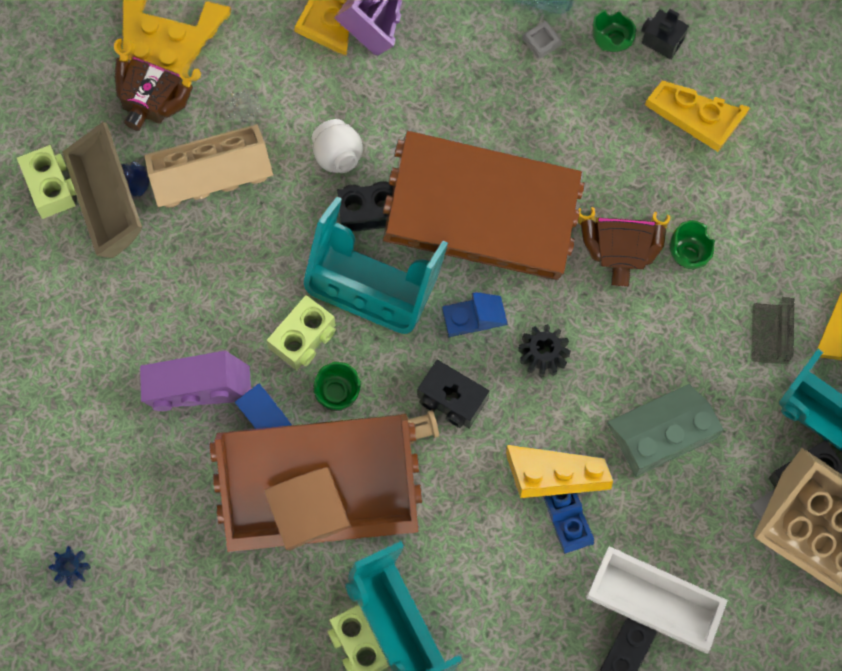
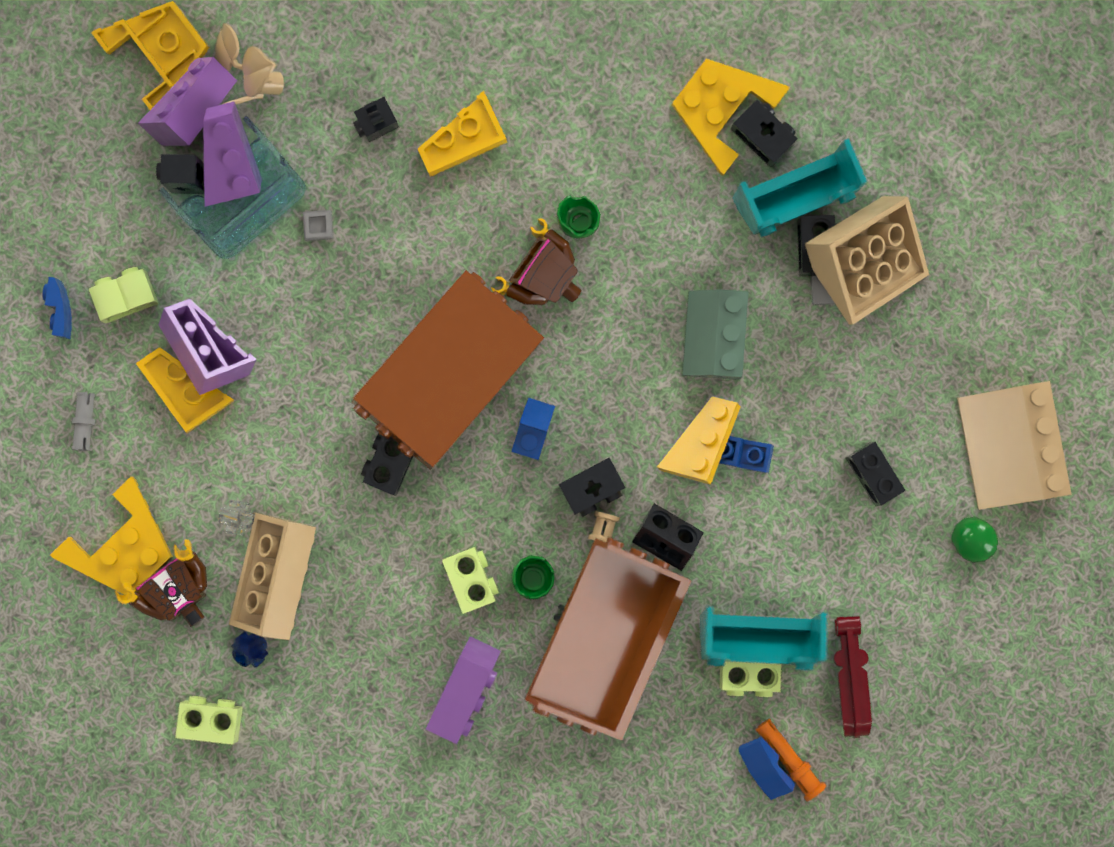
camera: 65 degrees left, 15 degrees up
(102, 192) = (249, 680): dark tan slope -> none
(261, 409) = (523, 648): blue slope -> none
(307, 508) = (627, 660): medium nougat slope -> none
(336, 146) = (321, 459): white piece -> none
(365, 284) = (456, 501): teal windscreen -> none
(446, 487) = (667, 537): none -> black brick
(548, 360) = (588, 387): black gear -> none
(608, 24) = (358, 160): green hair -> none
(657, 599) = (849, 427): white slope -> none
(773, 332) = (685, 197): clear smoke panel -> none

